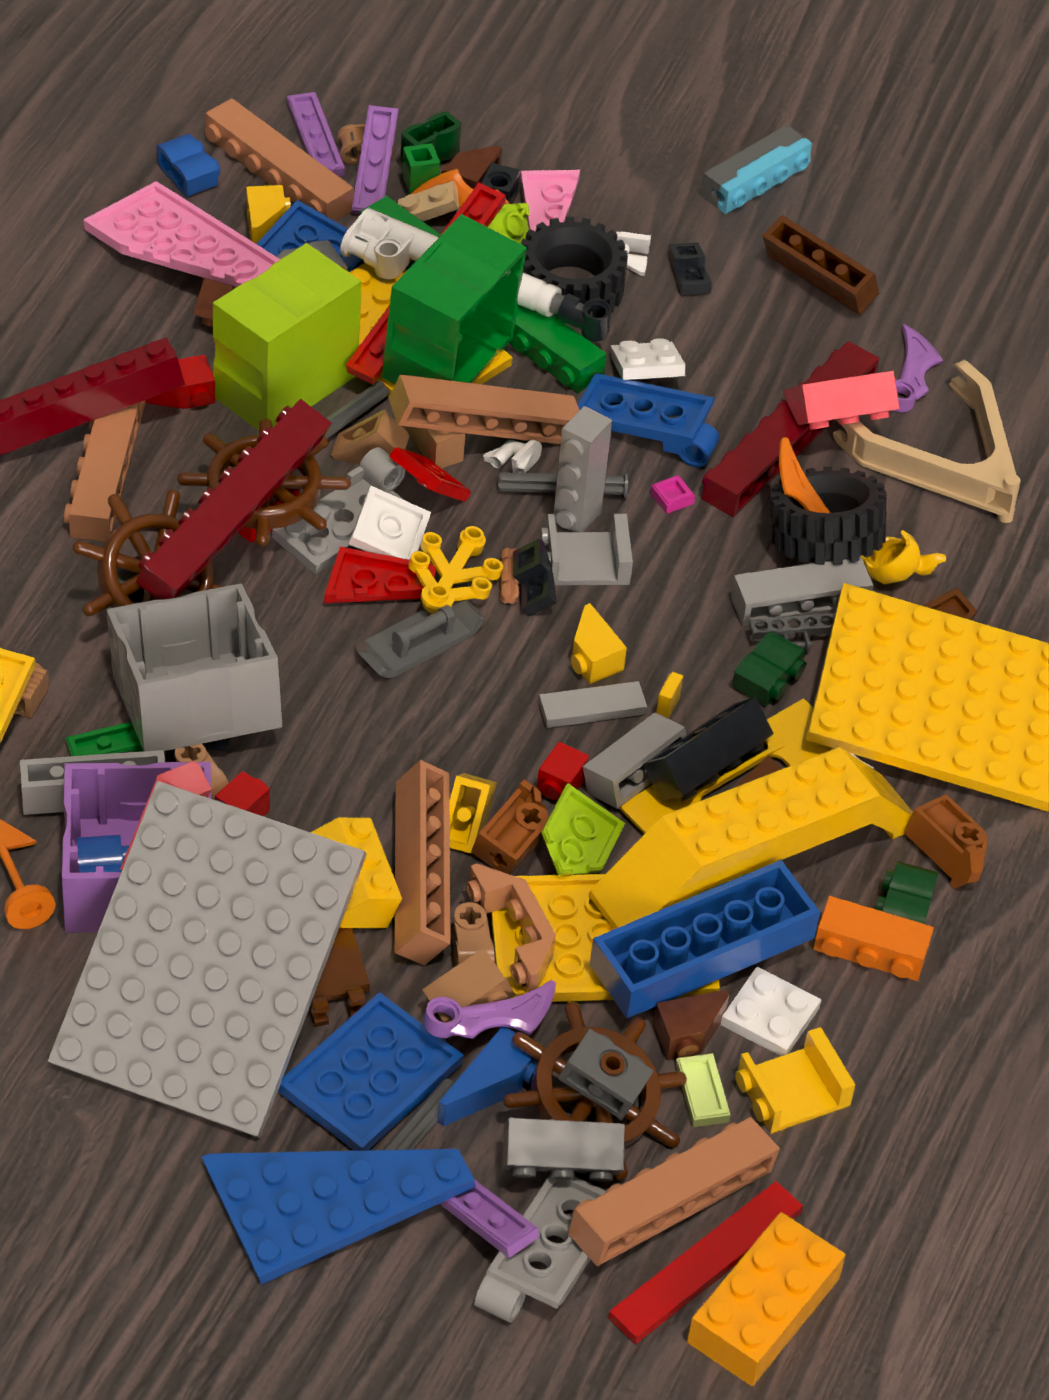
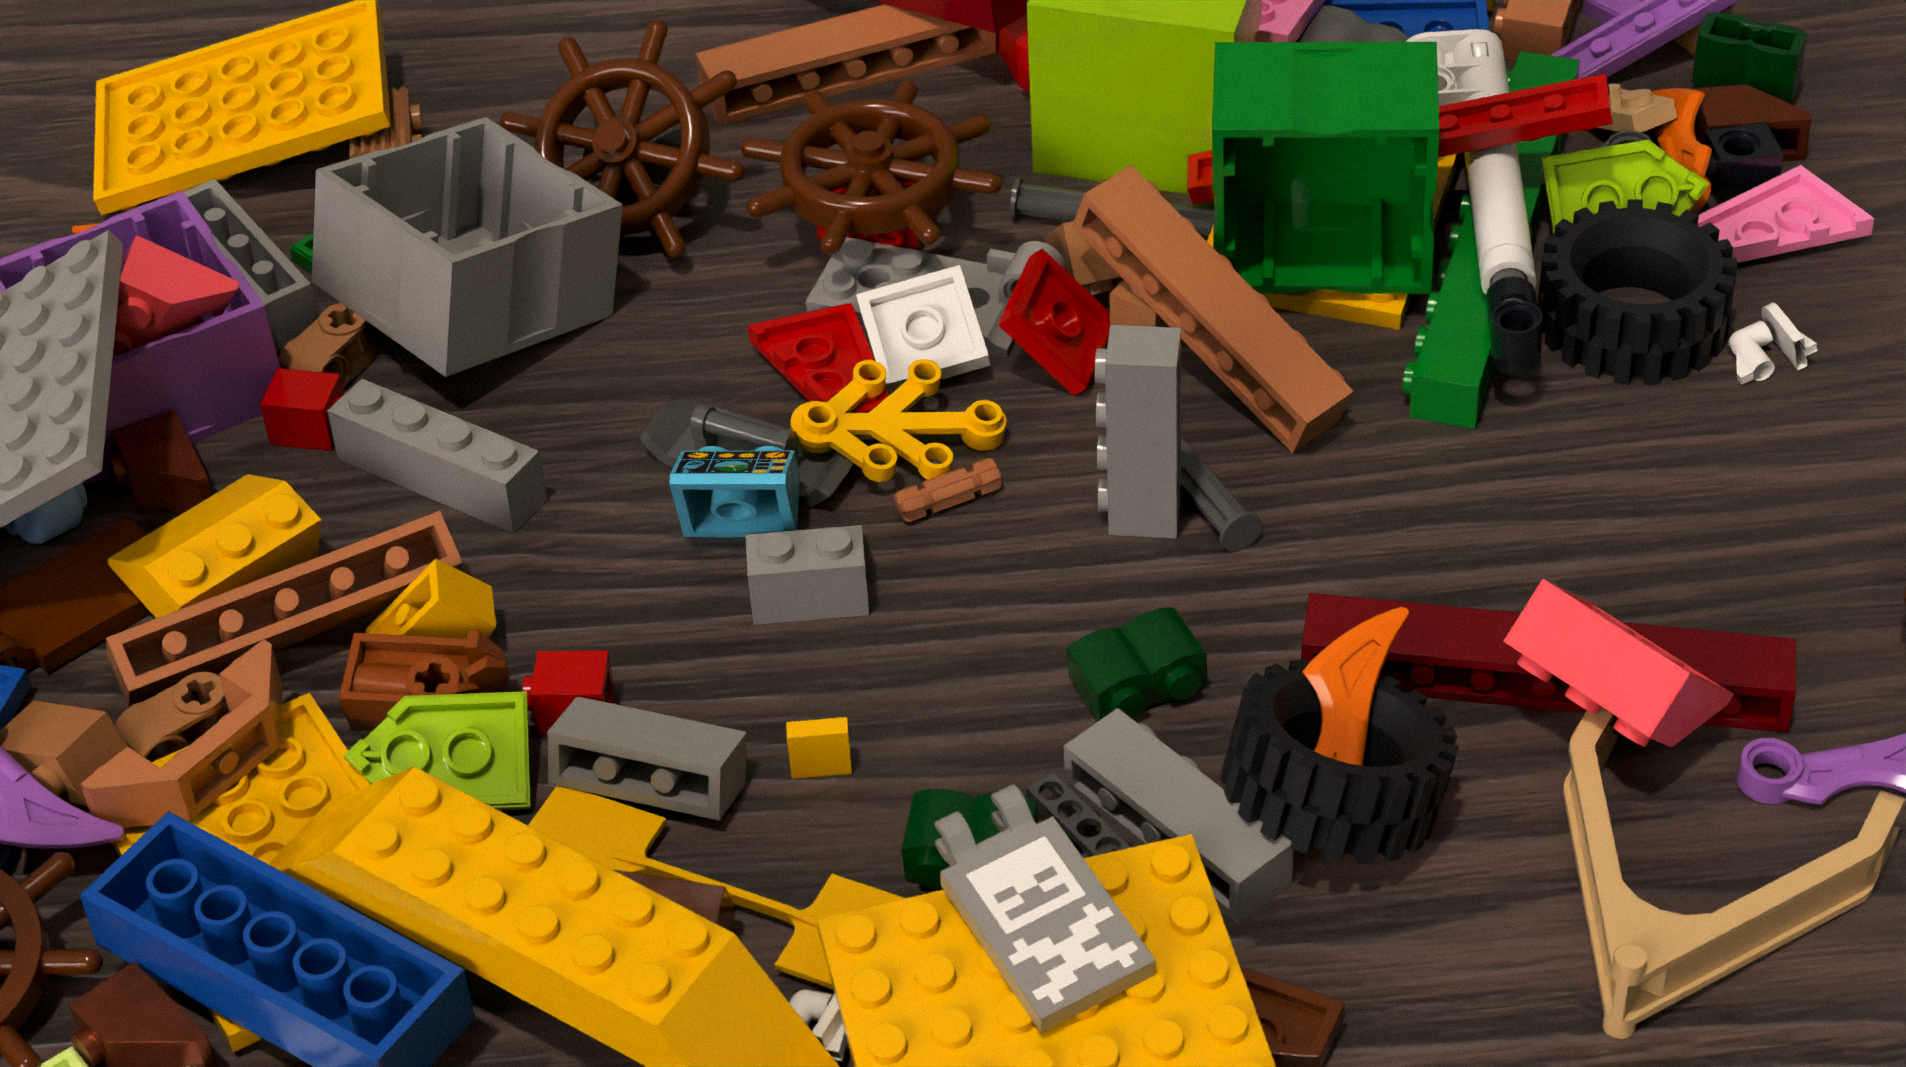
camera: 70 degrees right, 5 degrees down
(233, 502) = (760, 130): dark red brick -> none
(333, 759) = (438, 455): none -> light grey brick
(419, 165) = (1682, 61): green brick -> none
(467, 645) = (736, 491): none -> medium azure slope
(524, 455) = (1207, 404): white piece -> none
(532, 648) = (807, 575): none -> light grey slope
(536, 577) = (955, 499): black slope -> none
(589, 556) = (1058, 547): light grey panel -> none
(592, 704) = (751, 675): light grey tile -> none
(596, 648) = (861, 625): yellow slope -> none
(647, 359) = (1530, 445): white plate -> none
(672, 494) = (1278, 593): dark pink tile -> none
(680, 435) = (1405, 516): blue hinge -> none
(689, 268) = (1807, 419): black slope -> none
(696, 561) = (1138, 664): none -> dark green brick
(708, 750) = (708, 822): black brick -> none
(865, 649) = (1040, 912): none -> light grey tile
(900, 559) = (1342, 900): yellow hair -> none

